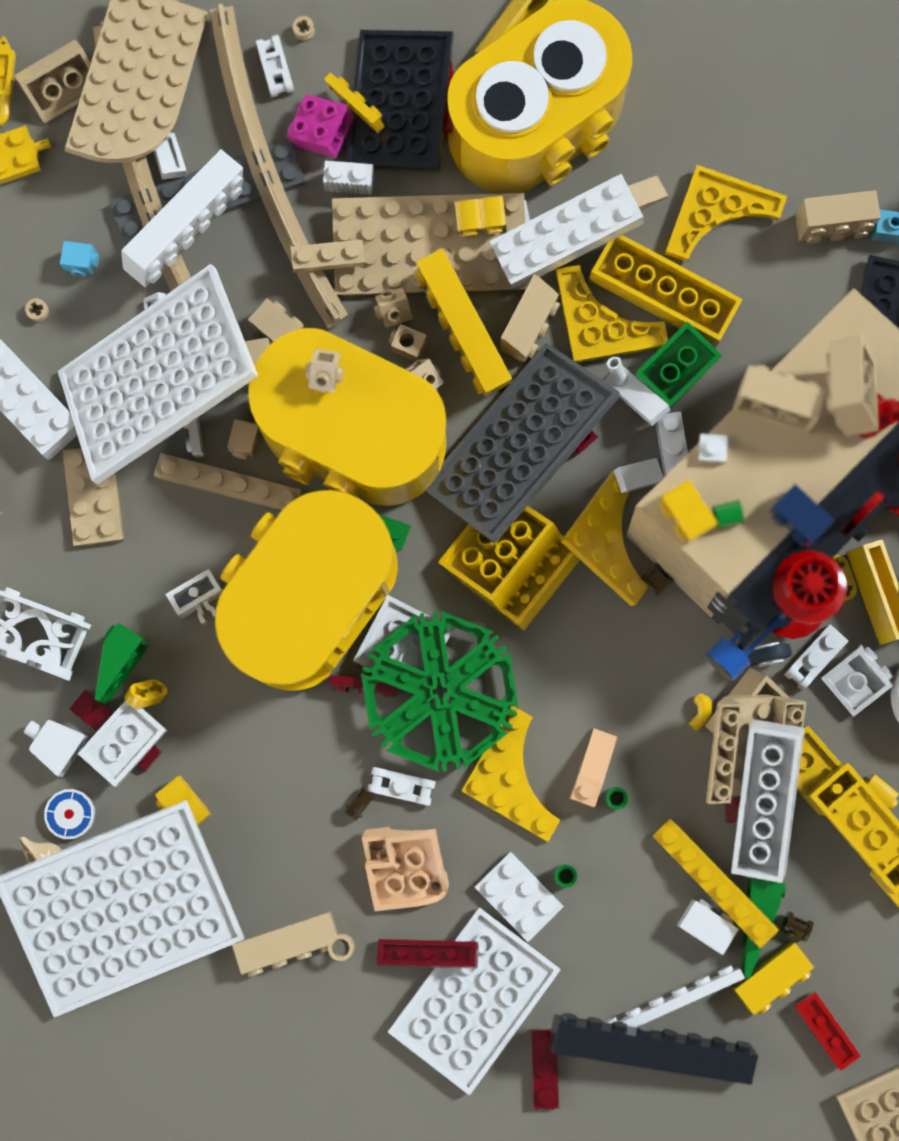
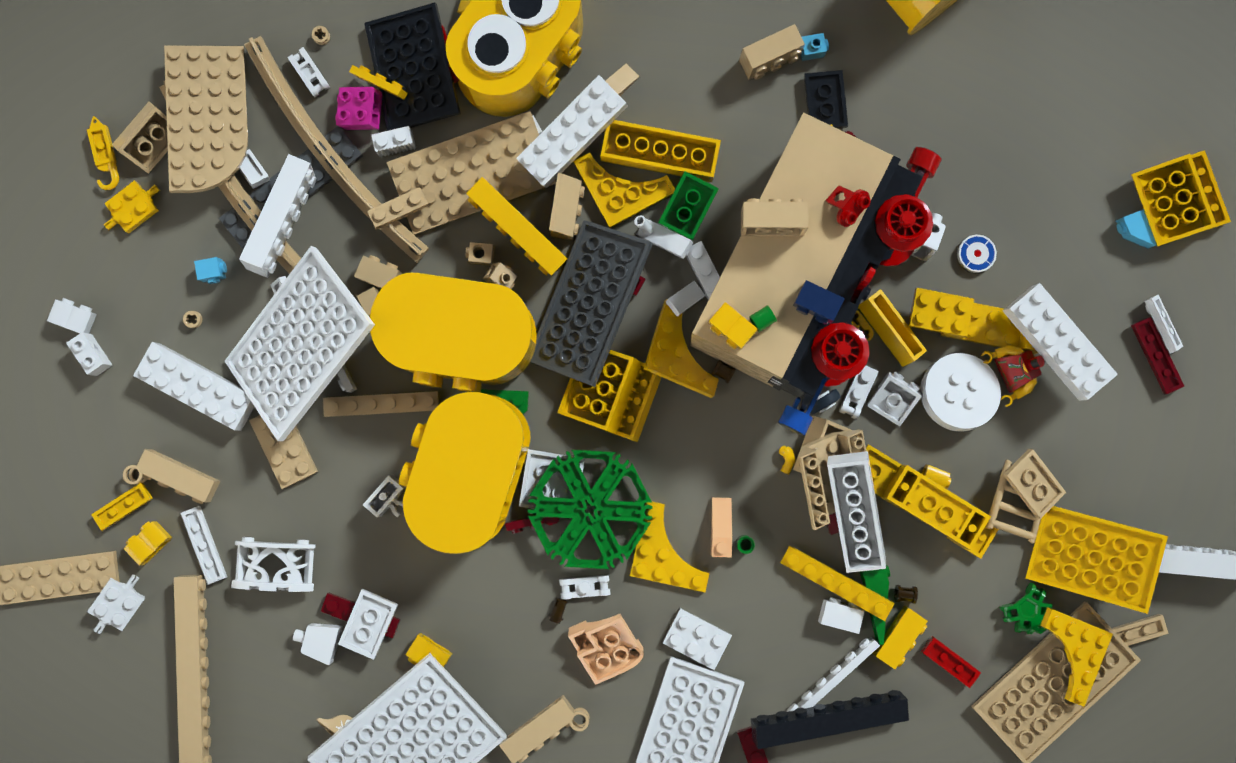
camera: 15 degrees left, 5 degrees up
(69, 814) = (347, 688): tile -> none
(119, 657) = (343, 563): green slope -> none
(145, 693) = (370, 580): yellow beam -> none
(243, 439) = (380, 368): tan brick -> none
(324, 371) = (424, 305): tan brick -> none
(392, 307) = (460, 231): tan brick -> none
(428, 953) = (644, 704): dark red plate -> none
(480, 215) = (502, 140): yellow brick -> none
(574, 875) = (730, 618): green beam -> none
(712, 448) = (735, 271): white plate -> none
(716, 200) = (675, 69): yellow plate -> none
(852, 385) = (826, 191): tan brick -> none

